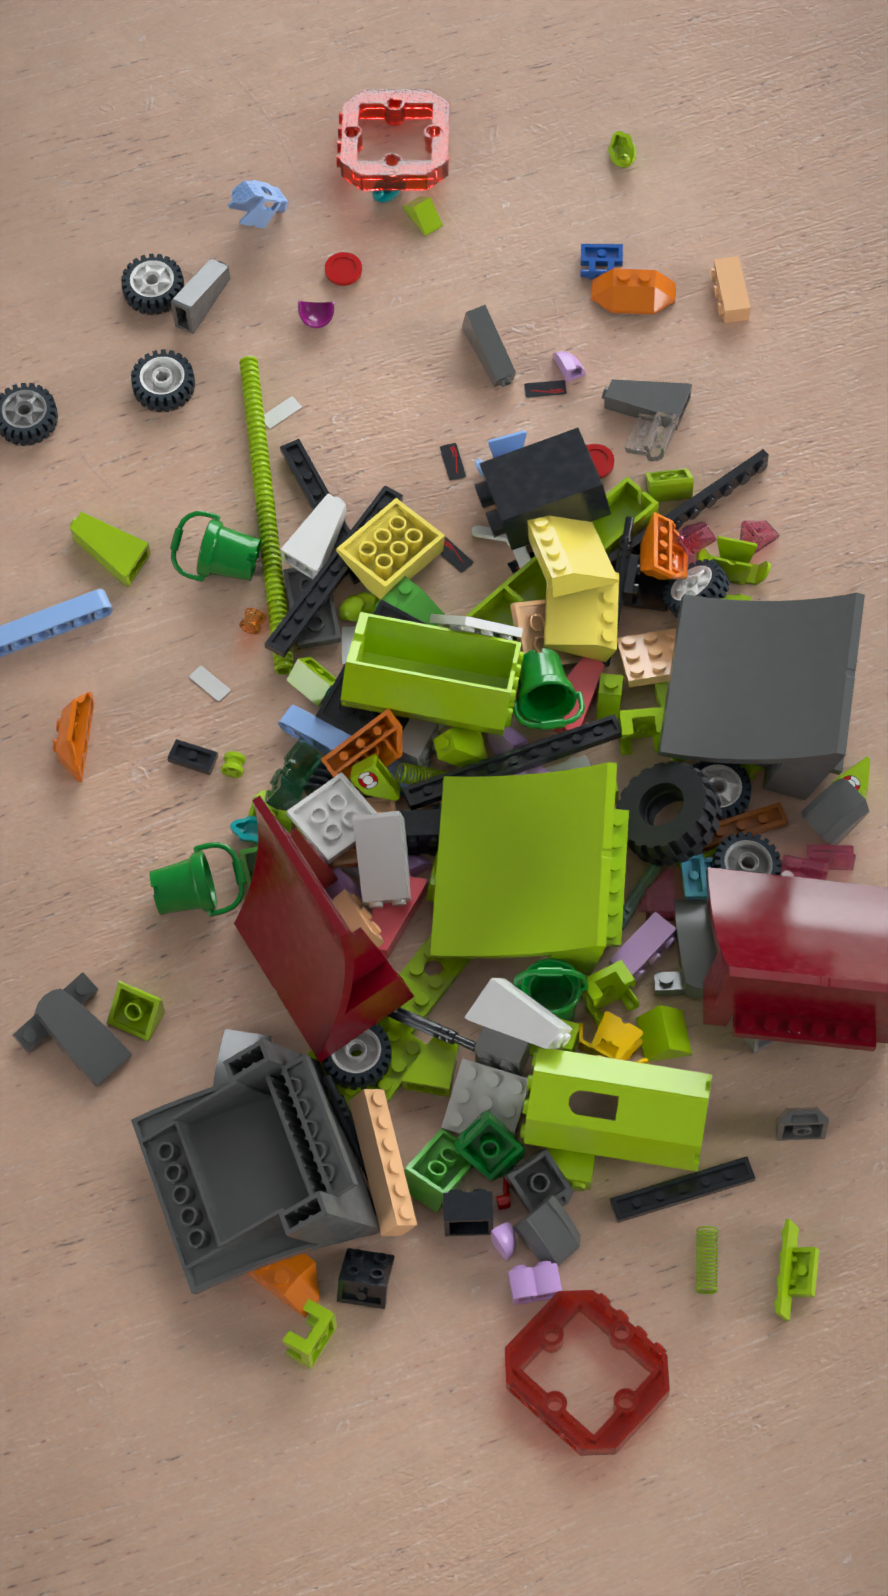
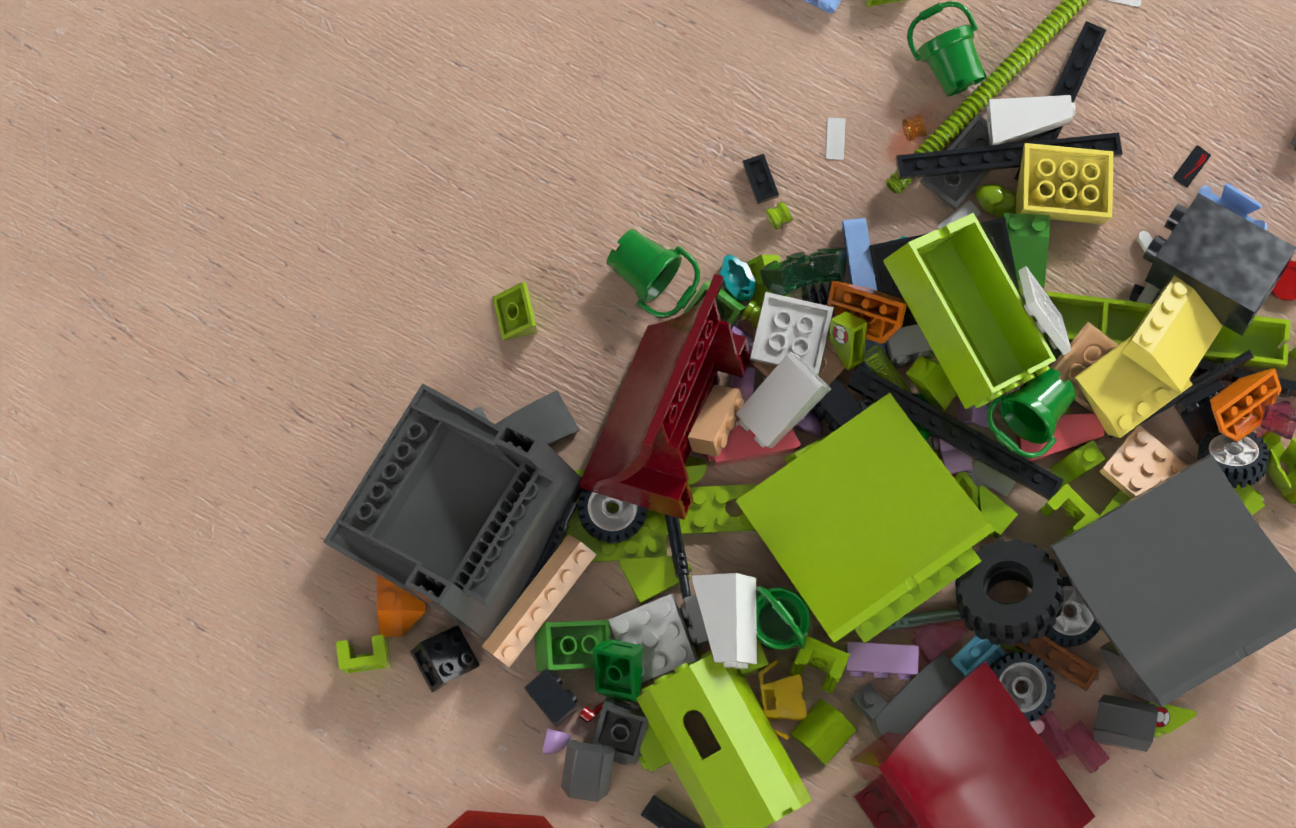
camera: 45 degrees right, 15 degrees up
(74, 734) = (704, 73): orange wedge -> none
(75, 1030) = (465, 280): dark grey slope -> none
(311, 679) = (902, 215): lime panel -> none
(455, 556) = (1107, 237): black sticker -> none
(534, 1283) = (539, 791): lavender brick -> none

